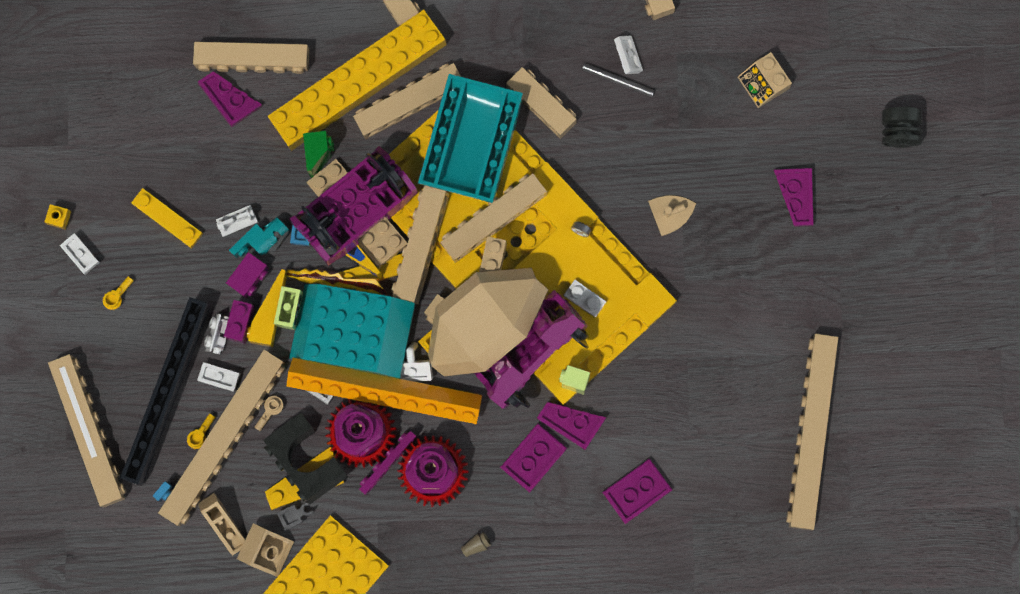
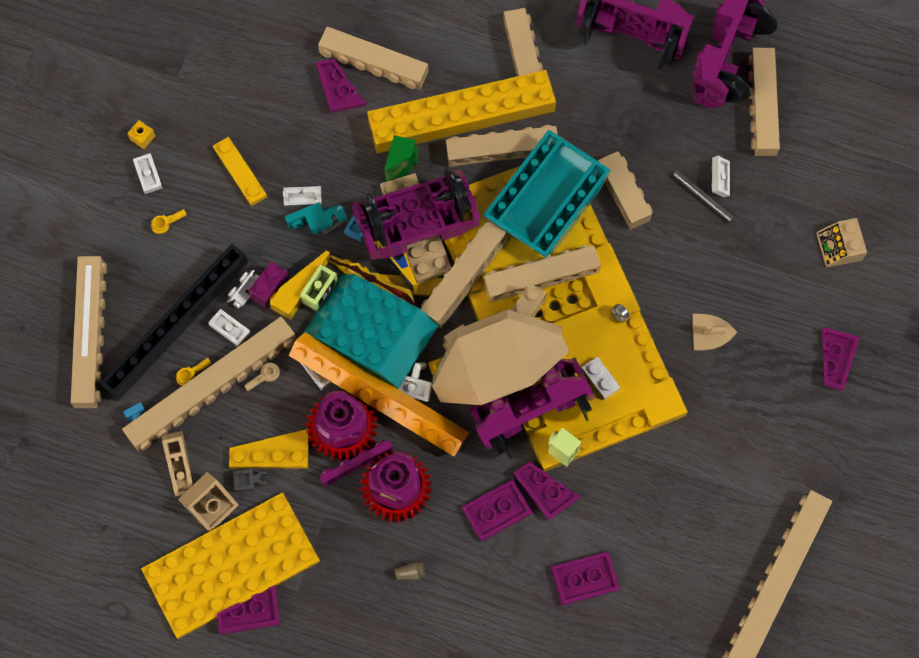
camera: 10 degrees right, 10 degrees down
(248, 275) = (293, 246): magenta brick -> none
(310, 484) = (277, 454): pearl dark grey arch -> none

